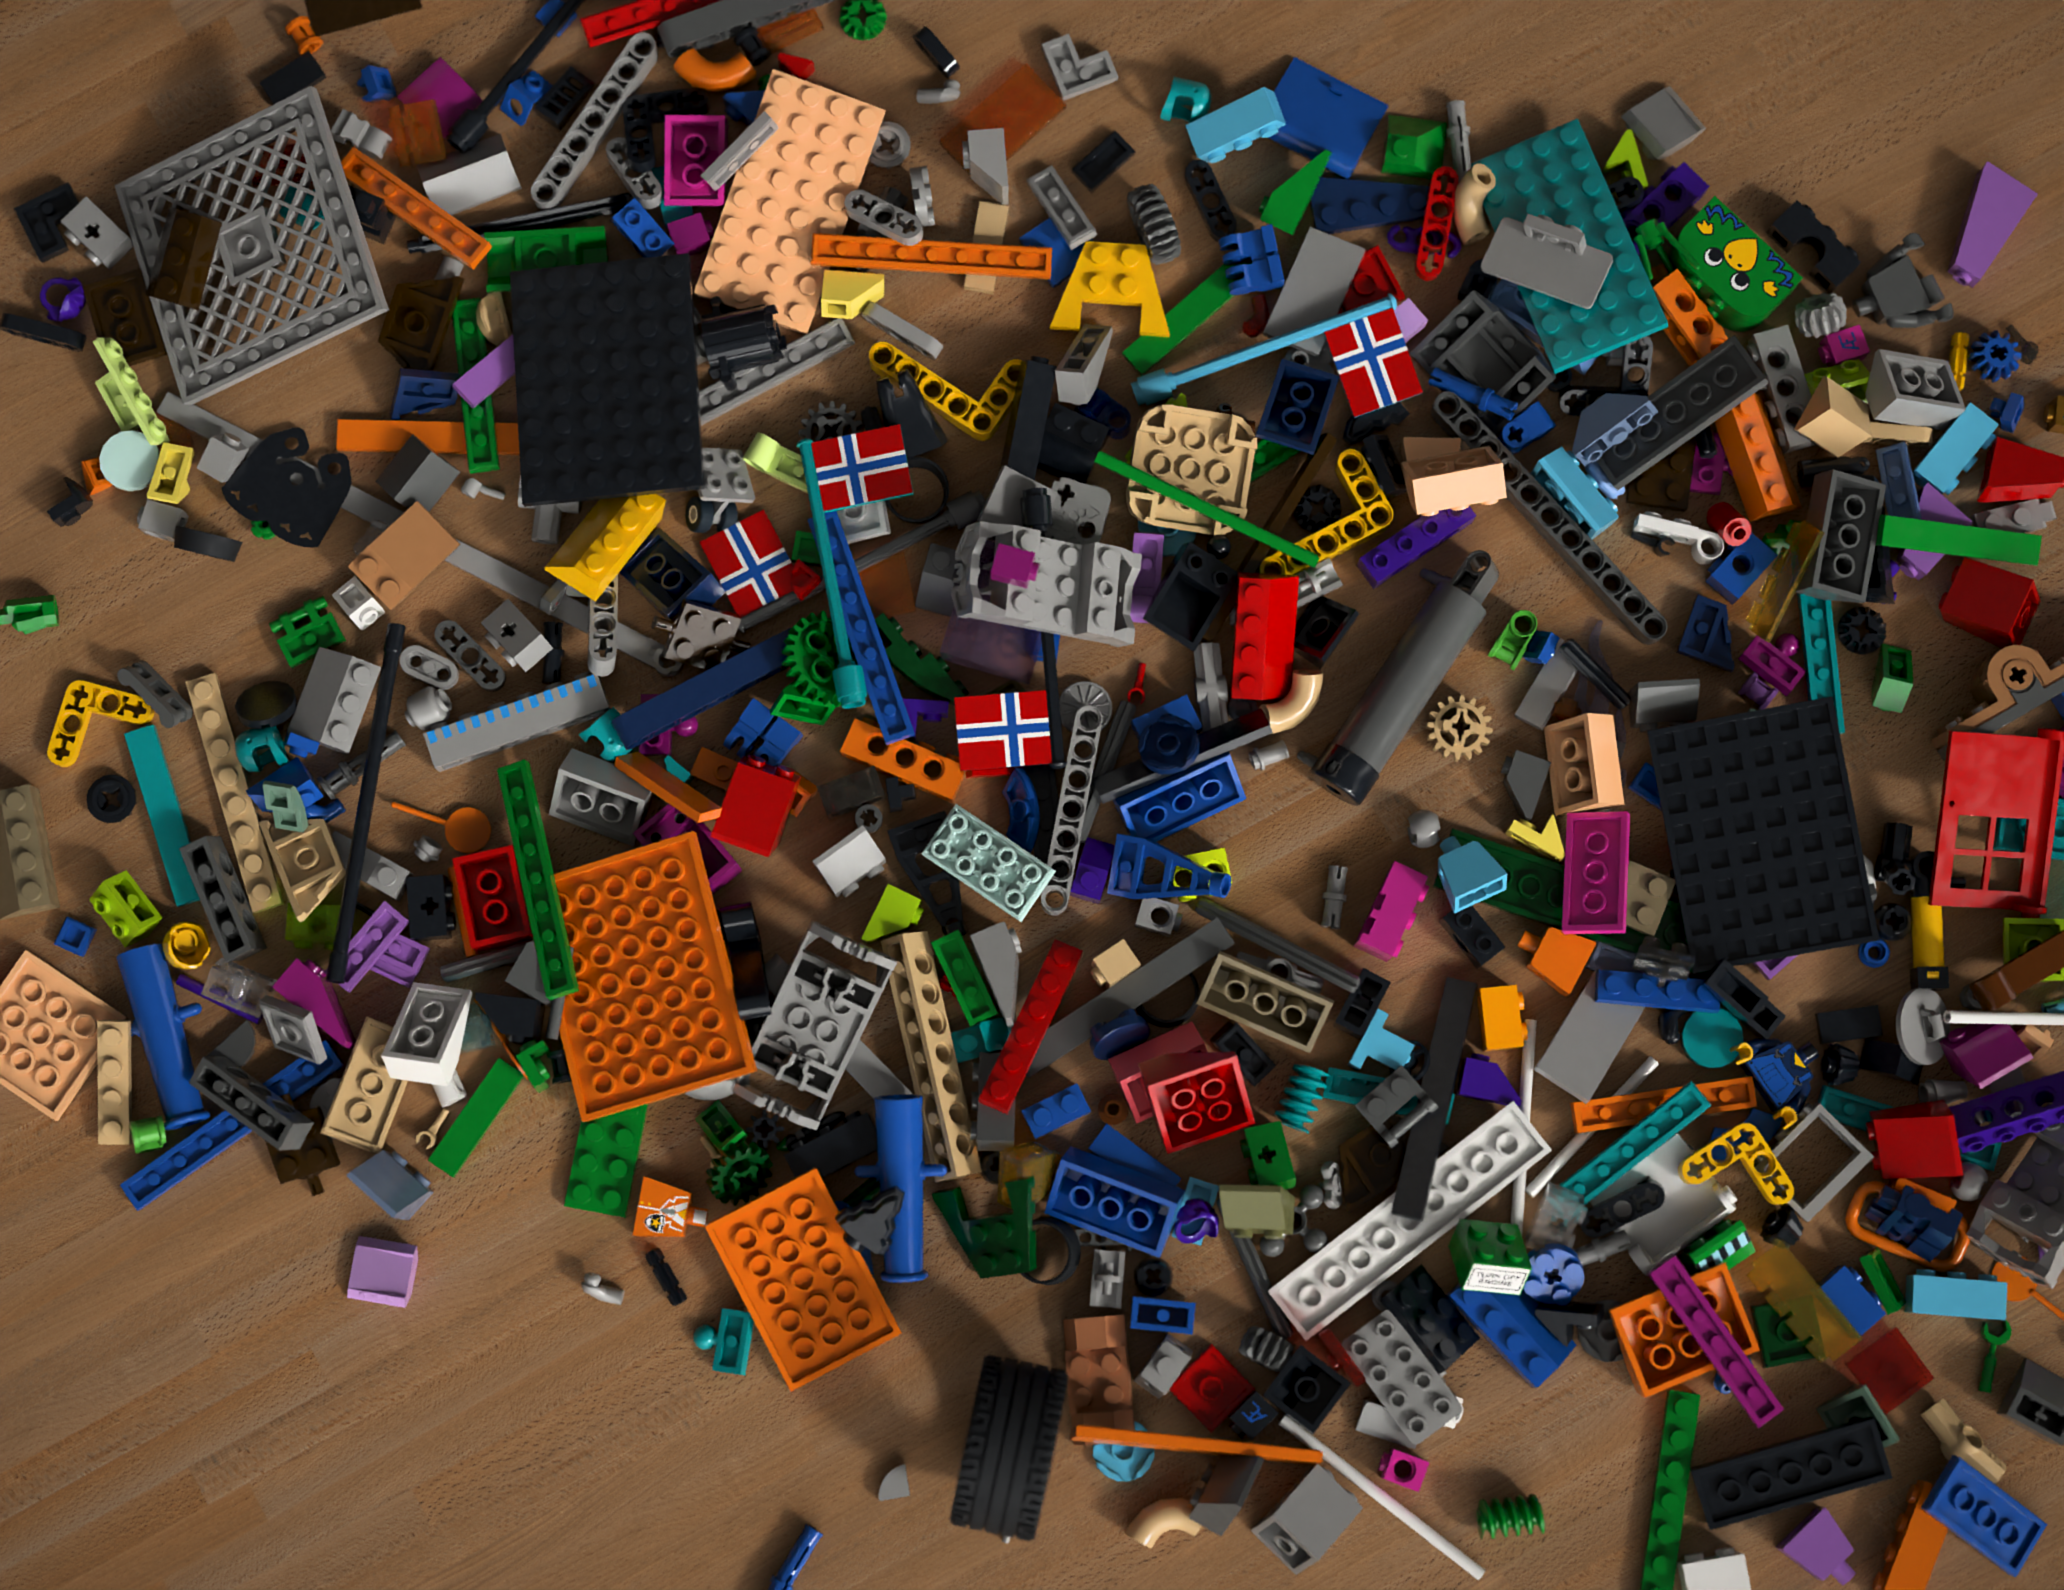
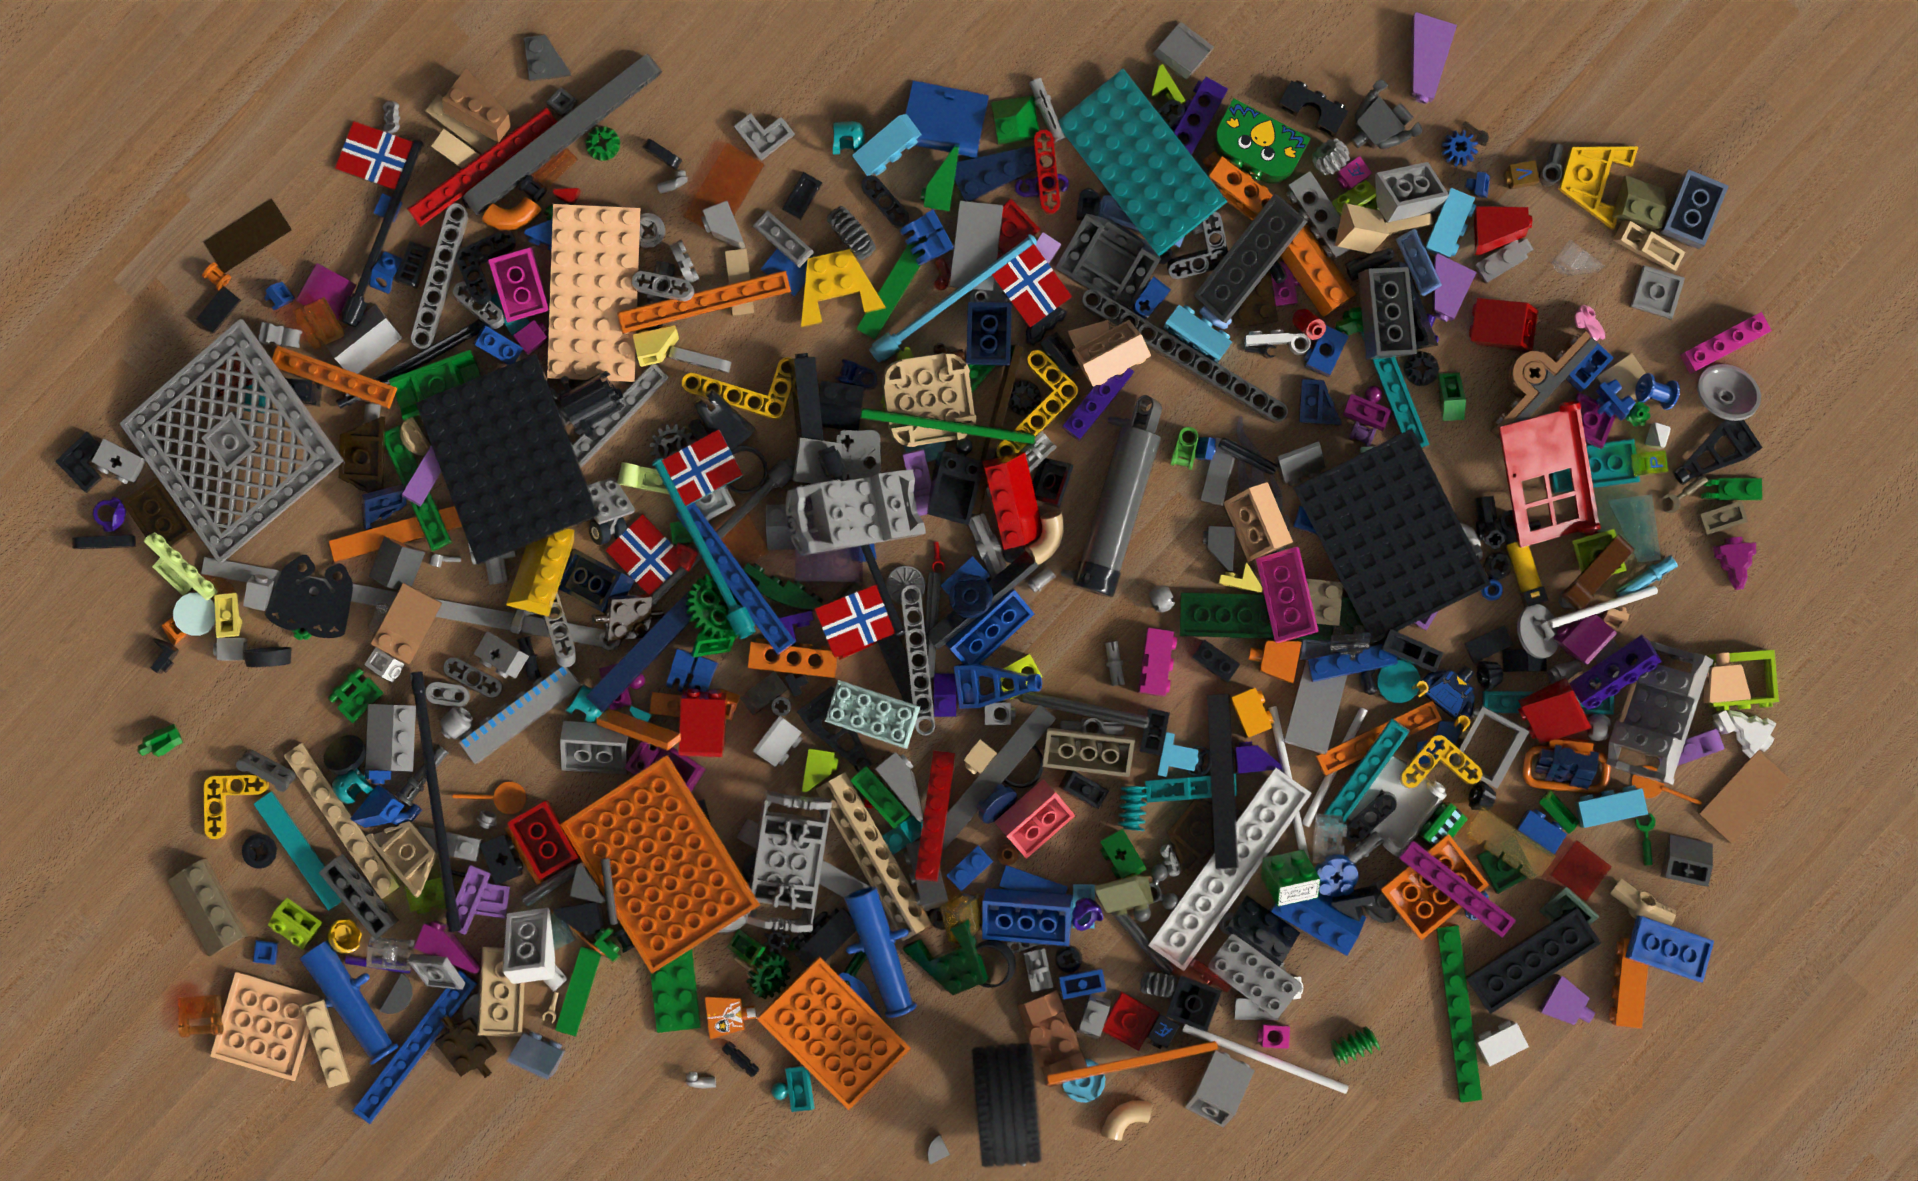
camera: 15 degrees left, 5 degrees up
(148, 1134) = (360, 1070): bright green piece -> none
(183, 258) = (186, 464): dark brown slope -> none
(251, 1102) = (424, 1029): dark grey brick -> none
(286, 806) = (382, 822): sand green slope -> none
(383, 1271) = (548, 1114): lavender slope -> none
(538, 880) = (569, 819): green plate -> none
(740, 151) = (549, 271): light grey tile -> none
(746, 961) = (729, 832): black beam -> none
(871, 1221) = (868, 982): black rock -> none
(1014, 566) = (830, 513): magenta brick -> none
(1022, 809) = (885, 669): blue tile -> none
(1082, 364) = (831, 348): light grey slope -> none
(1196, 1097) = (1061, 831): red slope -> none
(1224, 1491) = (1158, 1088): dark grey slope -> none
(1390, 1097) = (1191, 792): dark grey plate -> none
(1469, 204) = (1065, 150): tan cylinder -> none
(1469, 873) = (1200, 622): medium azure torso -> none
(1473, 729) = (1175, 519): tan gear -> none
(1474, 394) = (1105, 285): blue pin -> none
(1547, 259) = (1131, 179): light grey bracket -> none
(1566, 709) = (1235, 486): clear orange plate -> none
(1609, 423) = (1206, 279): sand blue slope -> none
(1651, 235) = (1197, 138): green plant -> none
(1779, 589) = (1357, 357): clear yellow windscreen -> none
(1958, 357) = (1435, 157): yellow axle -> none
(1958, 540) = (1469, 288): green tile -> none

